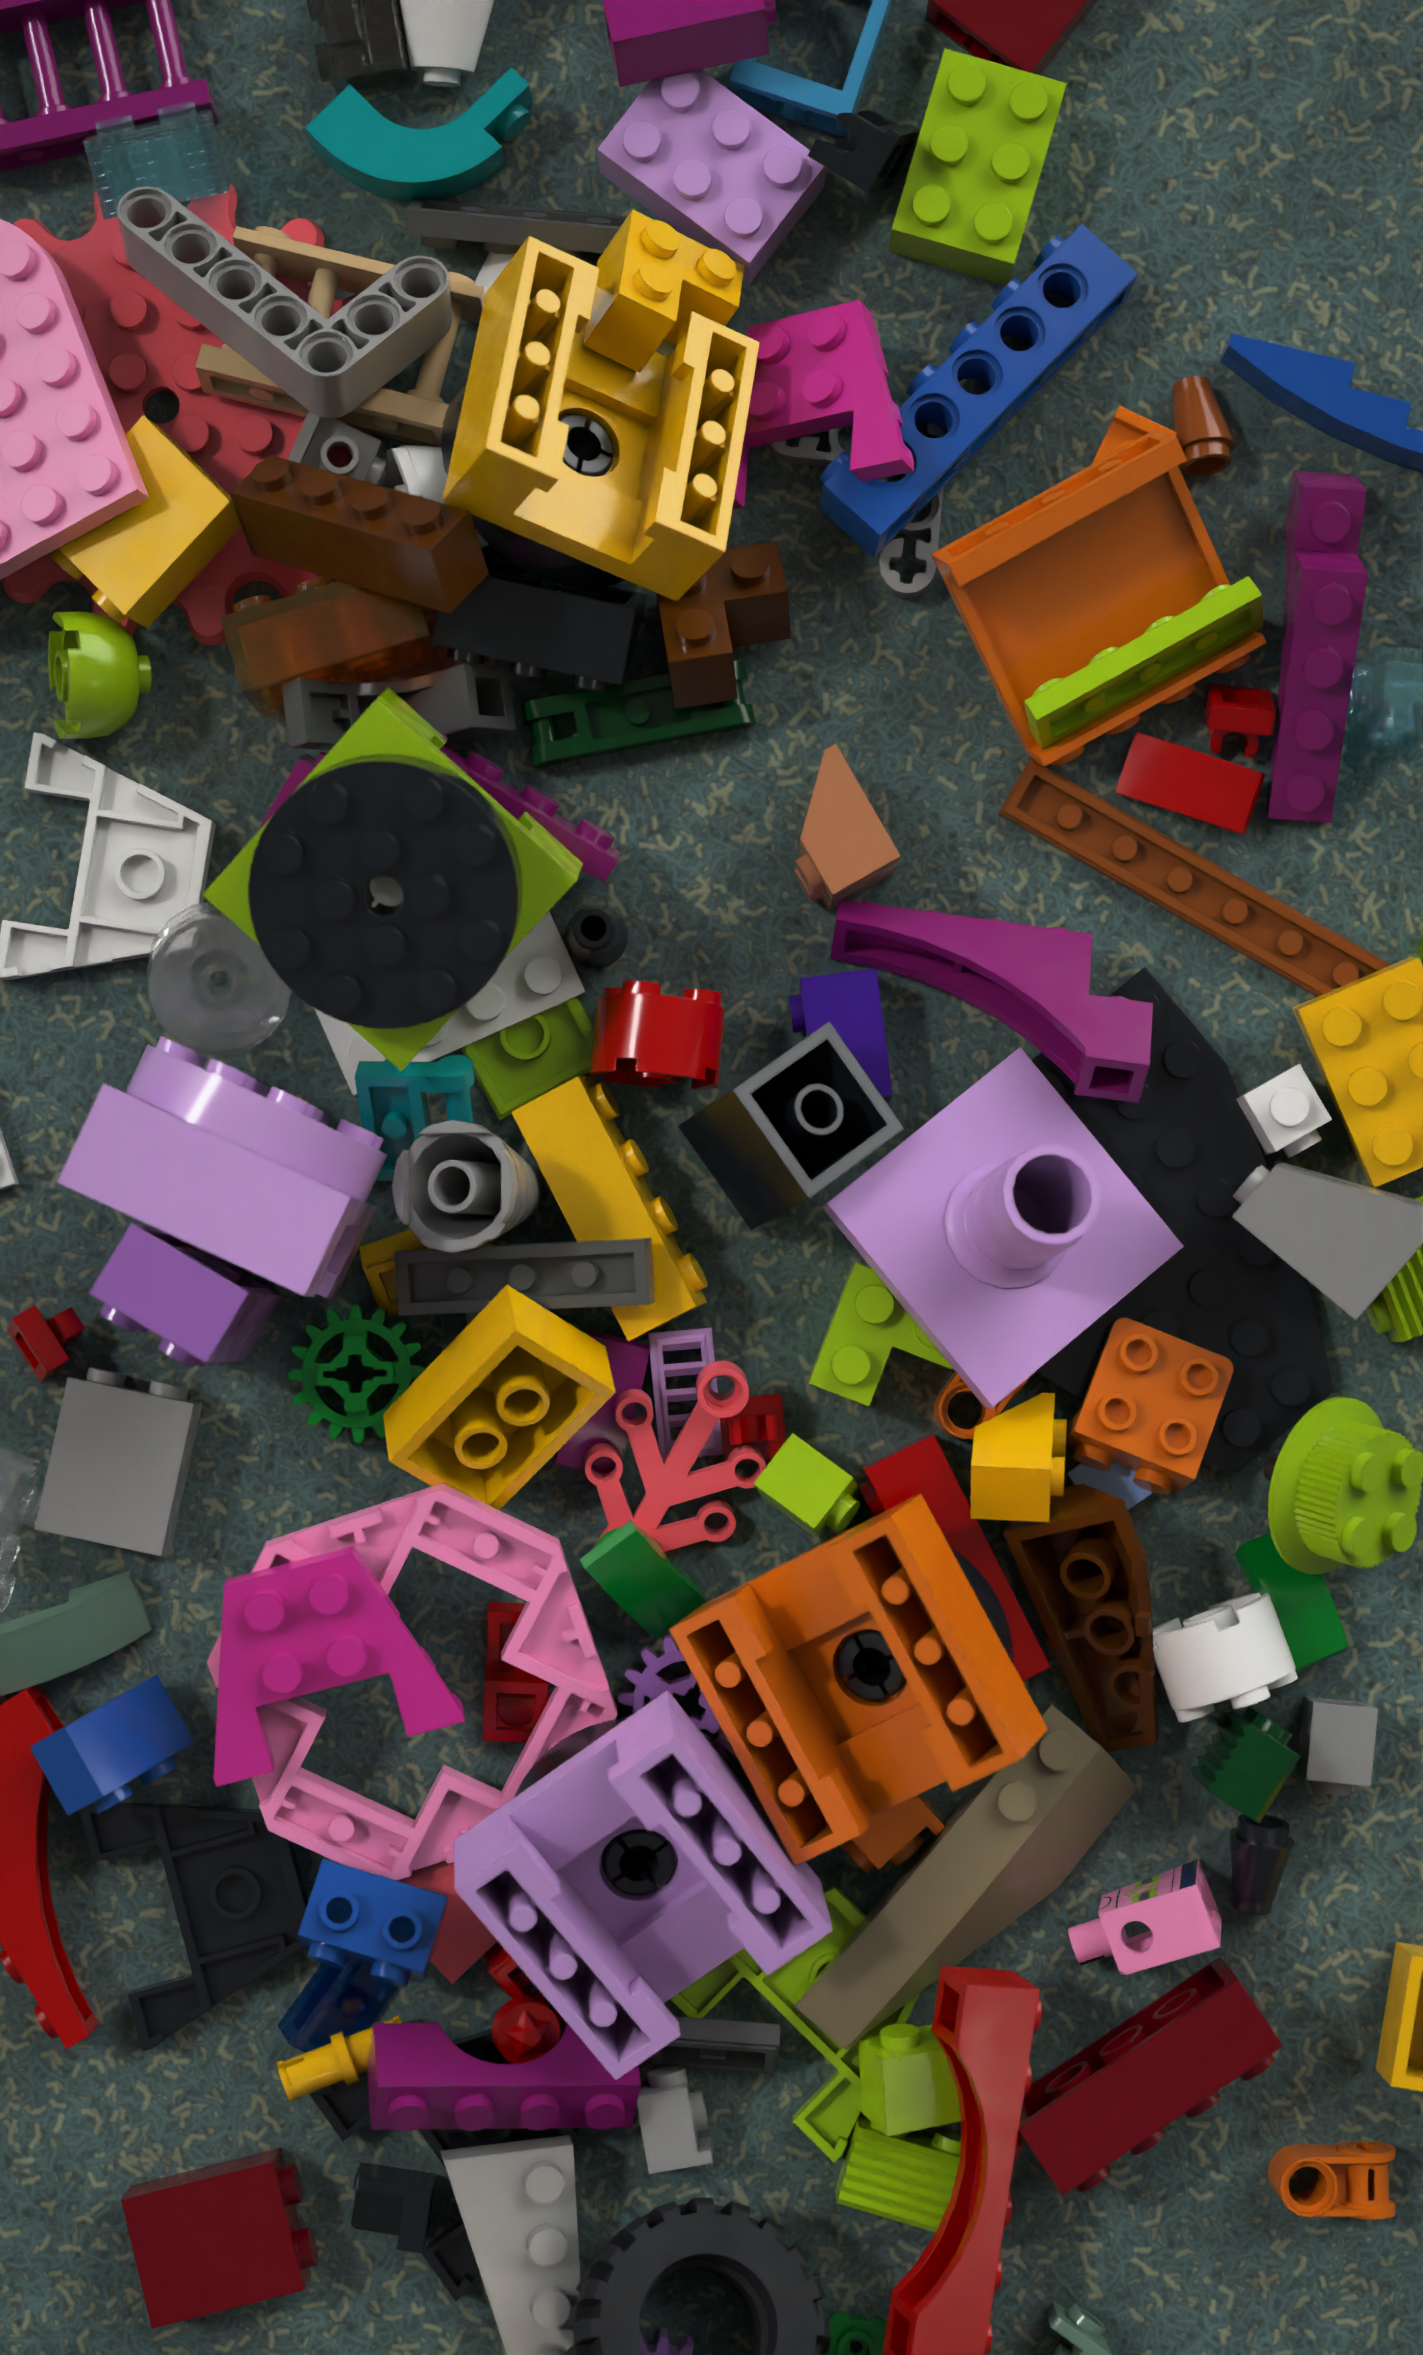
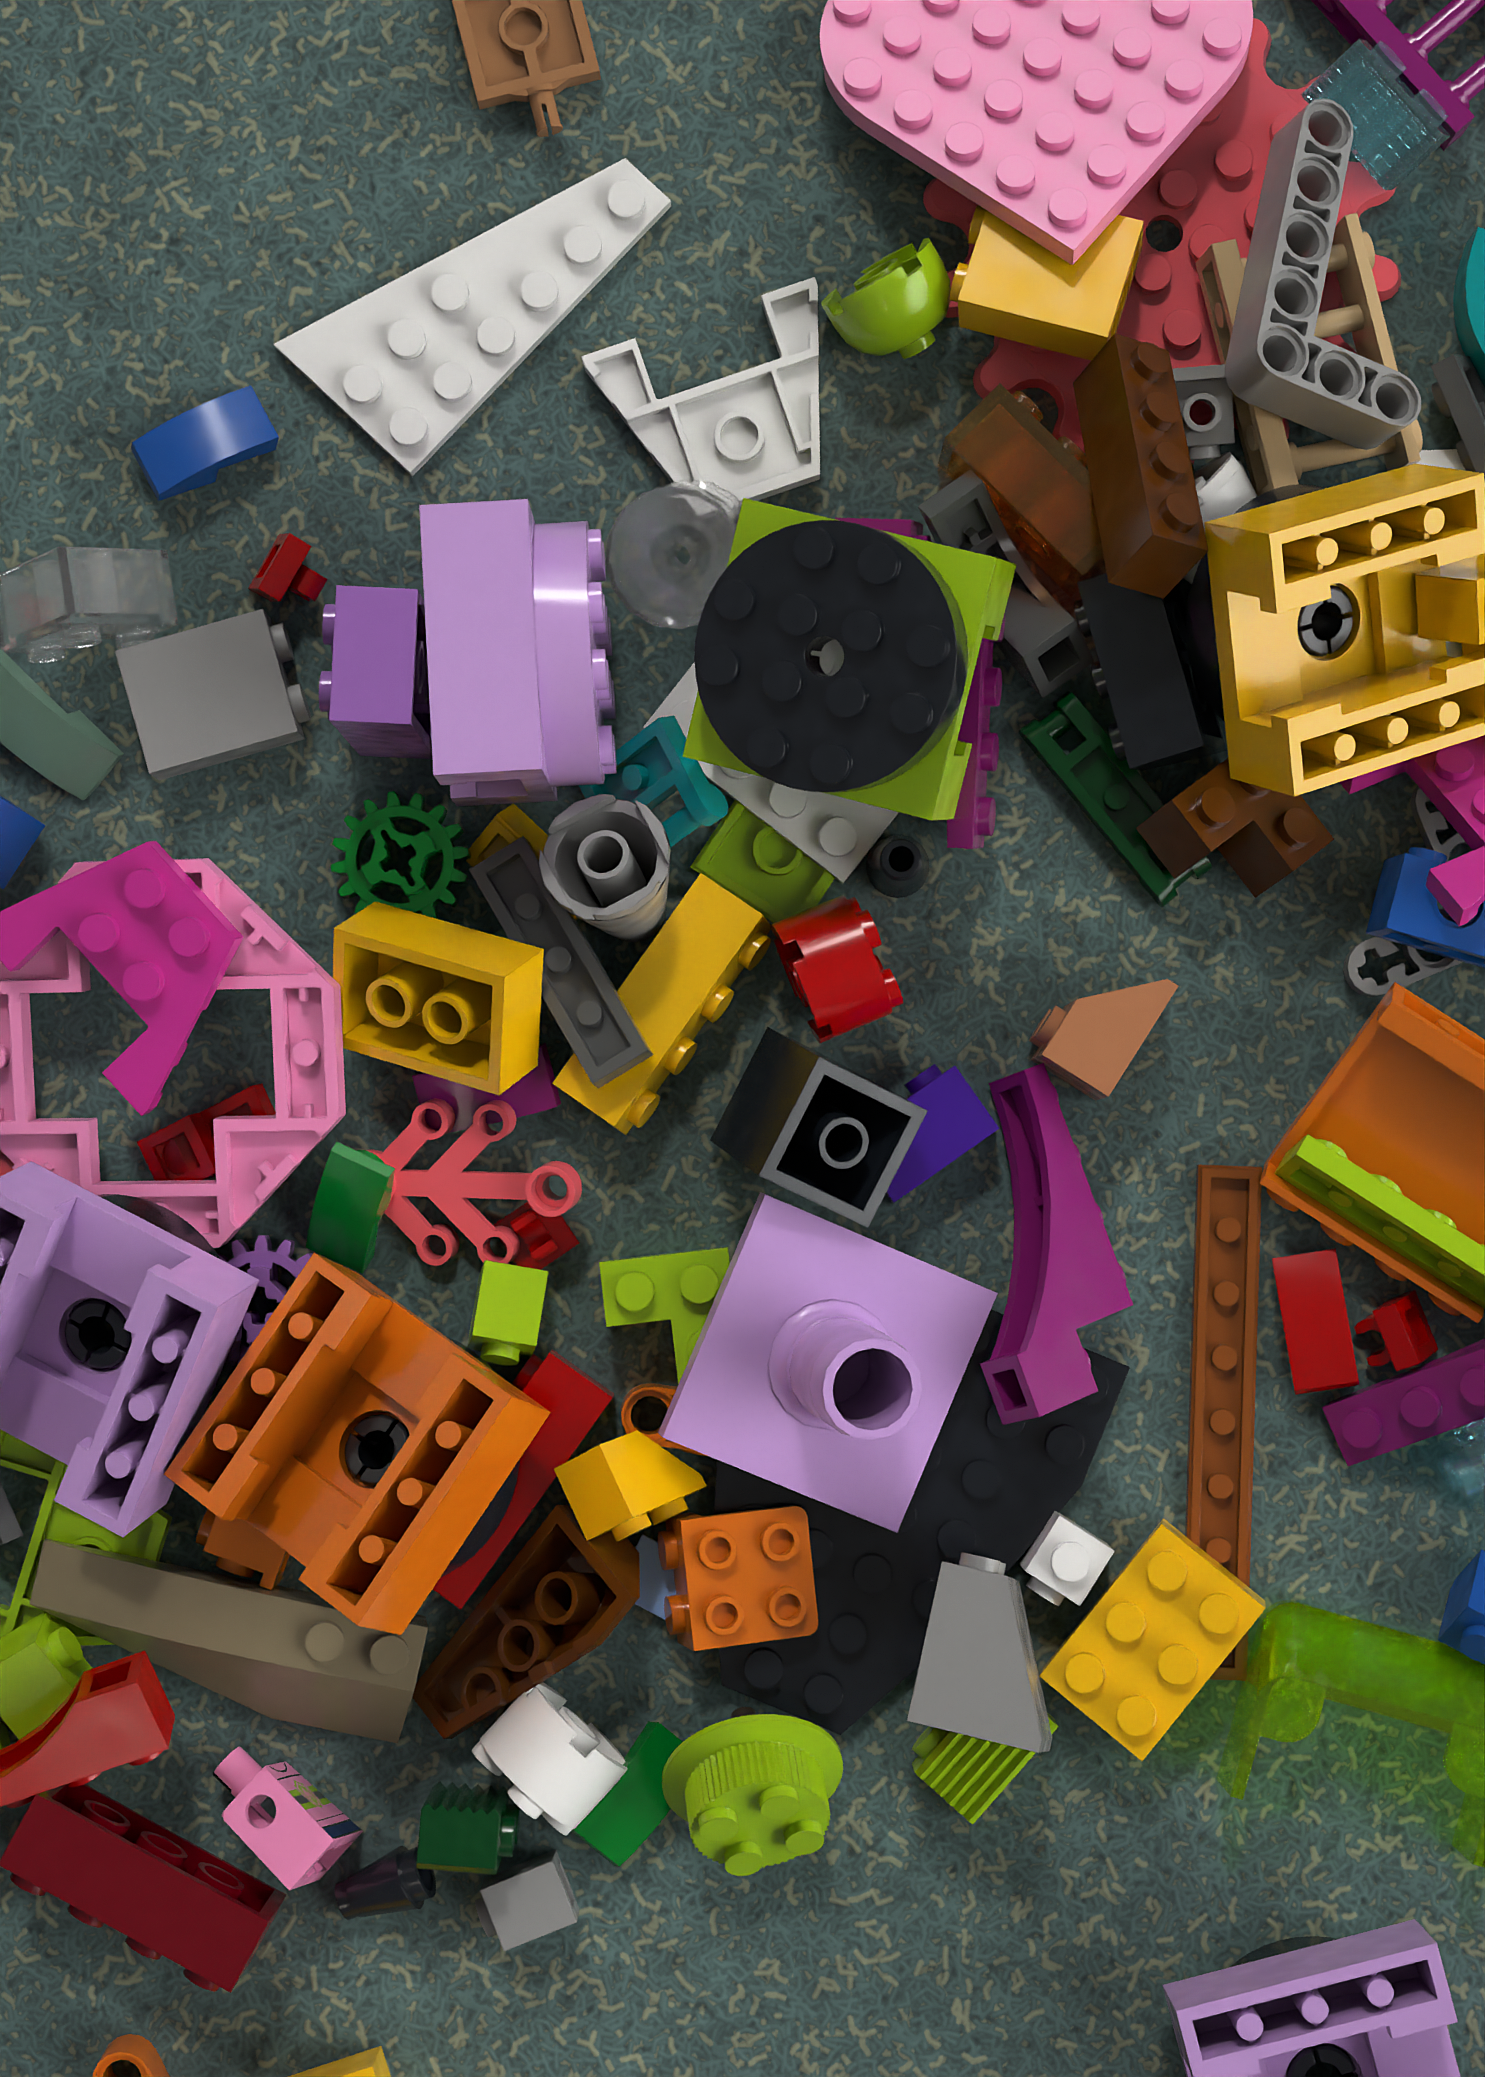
camera: 60 degrees right, 0 degrees up
(672, 1341) = (576, 1125): lavender slope -> none

